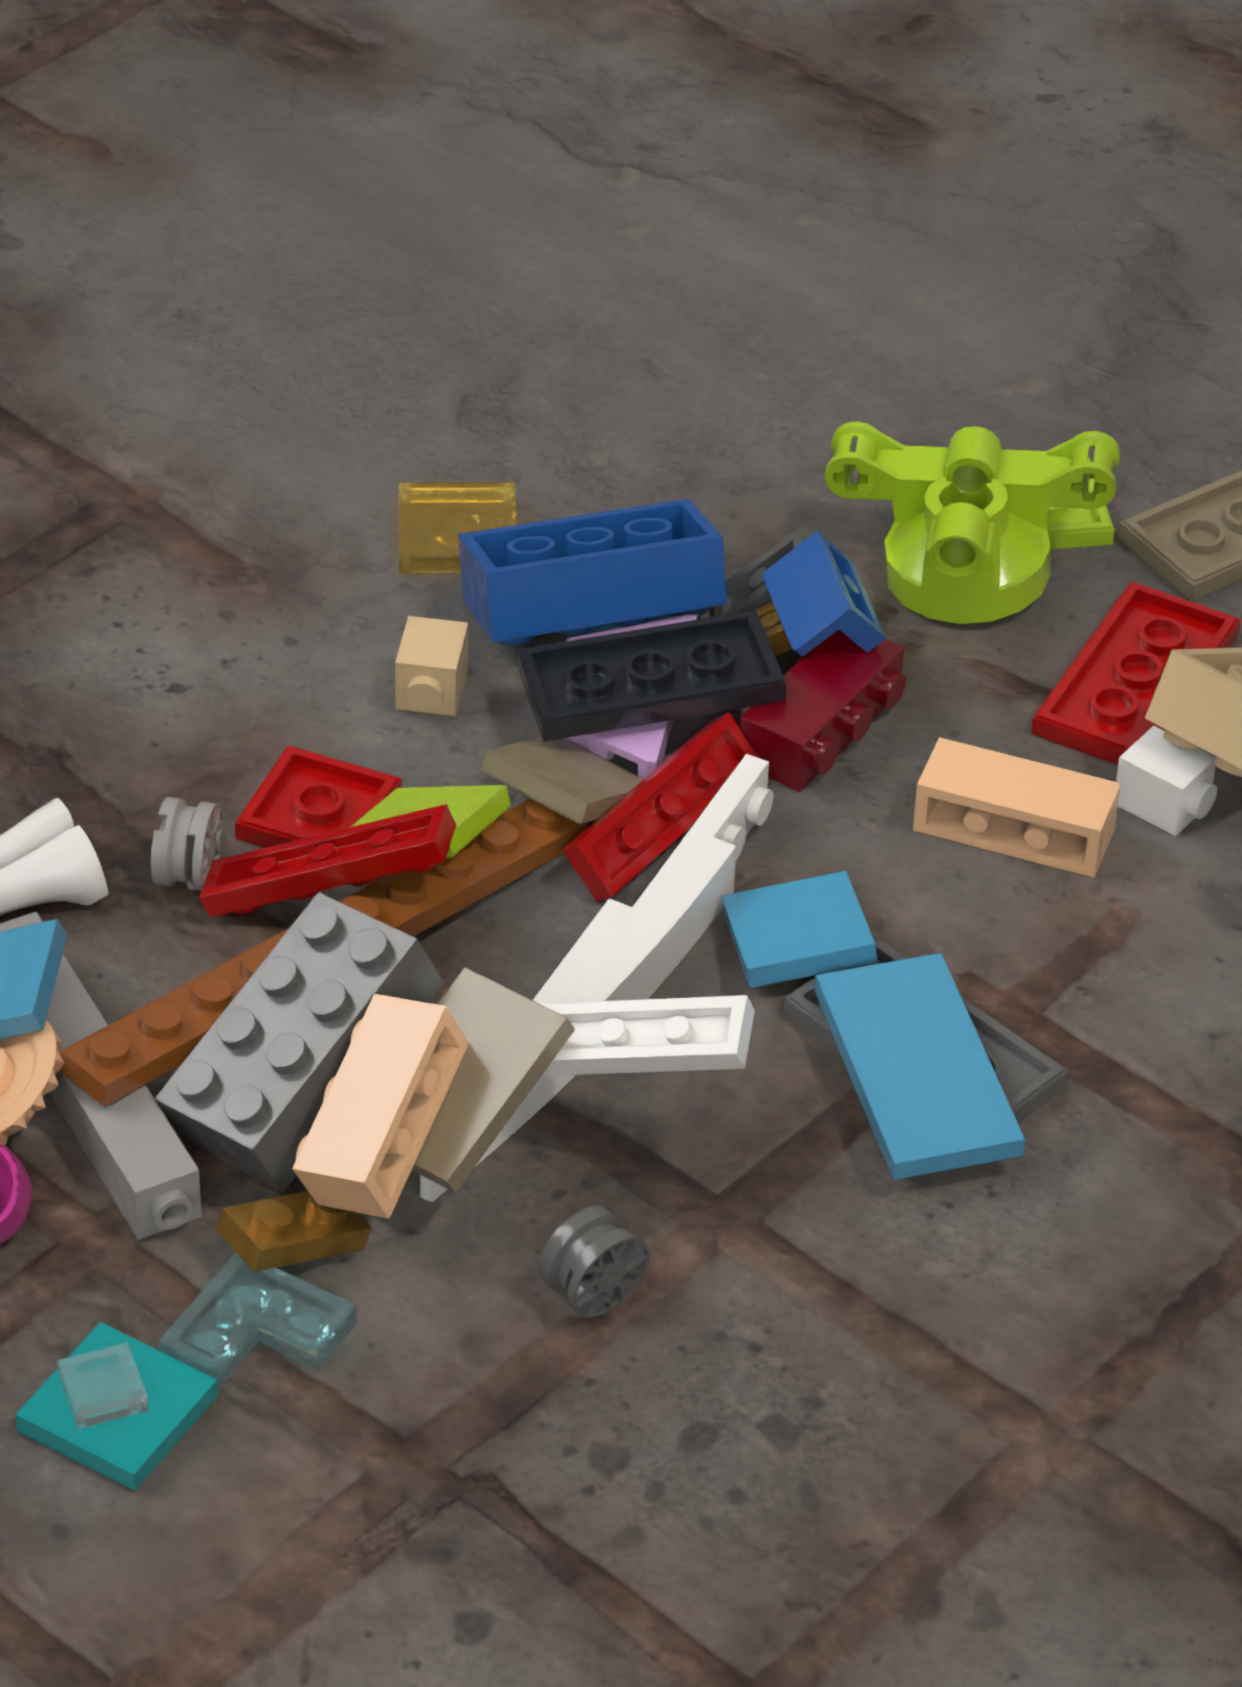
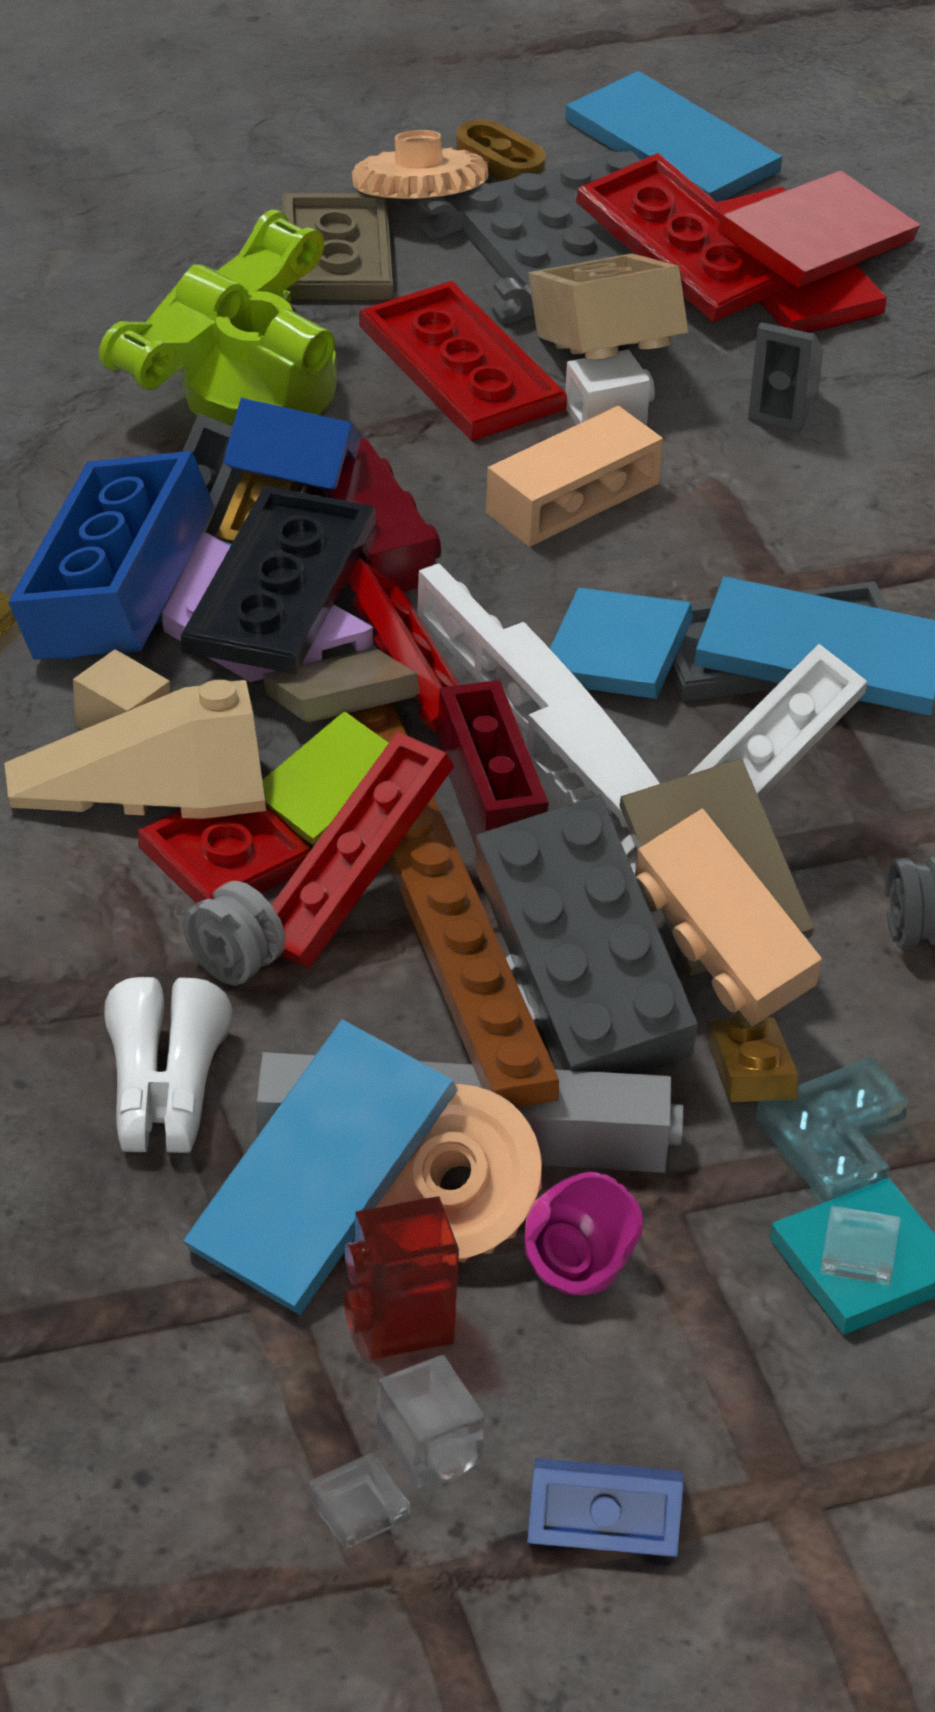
camera: 60 degrees left, 0 degrees up
(373, 717) = (175, 751): none -> tan wedge
(522, 907) = (490, 758): none -> dark red brick

